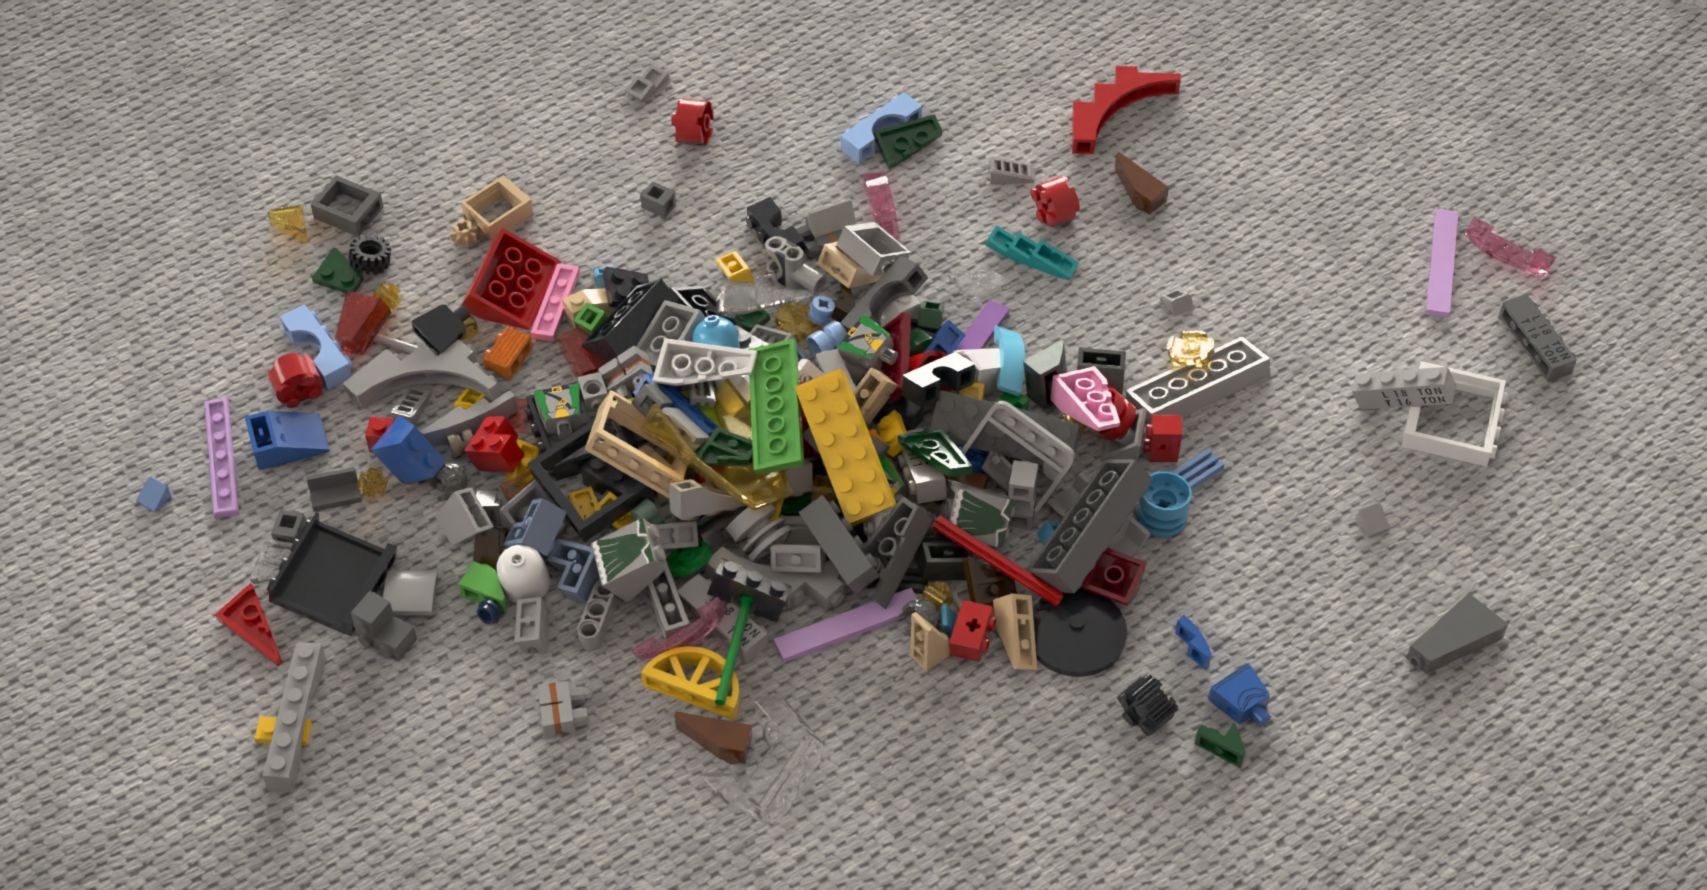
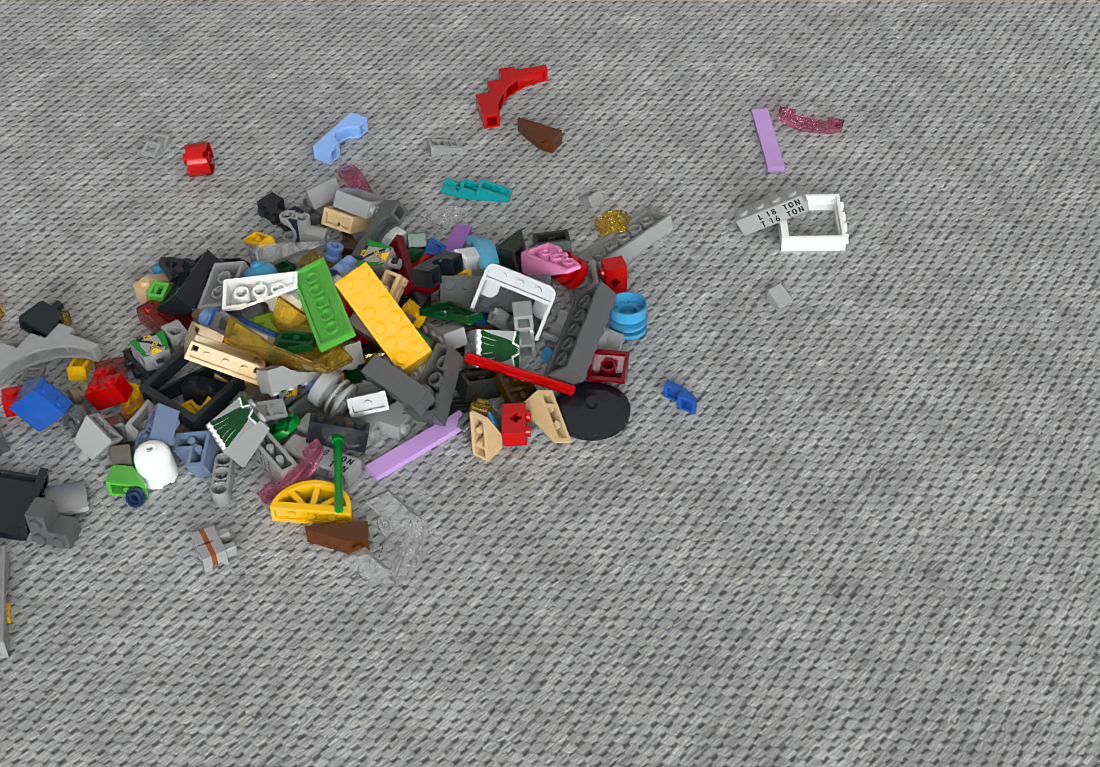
camera: 15 degrees left, 10 degrees down
(372, 482) = (15, 433): clear yellow gear -> none
(464, 233) = (42, 262): tan gear -> none
(472, 418) = (74, 377): light grey slope -> none
(488, 195) = (80, 238): tan window -> none
(508, 352) = (100, 328): orange brick -> none
(510, 282) = (88, 284): red slope -> none
(532, 625) = (172, 497): light grey hinge -> none
(552, 310) = (126, 295): bright pink plate -> none
(626, 371) = (202, 312): light grey hips -> none
(658, 199) = (187, 212): dark grey brick -> none
(710, 398) = (256, 315): light grey tile -> none
(906, 139) = (362, 141): dark green wing -> none
(1055, 201) = (484, 154): red brick -> none
(1147, 705) = (661, 440): black brick -> none
(1218, 466) = (646, 287): medium blue tile -> none
(1226, 747) = (726, 456): dark green slope -> none
(1242, 696) = (727, 422): blue torso -> none
(1456, 634) = (865, 350): dark grey slope -> none
(1537, 337) = (850, 167): dark grey brick -> none

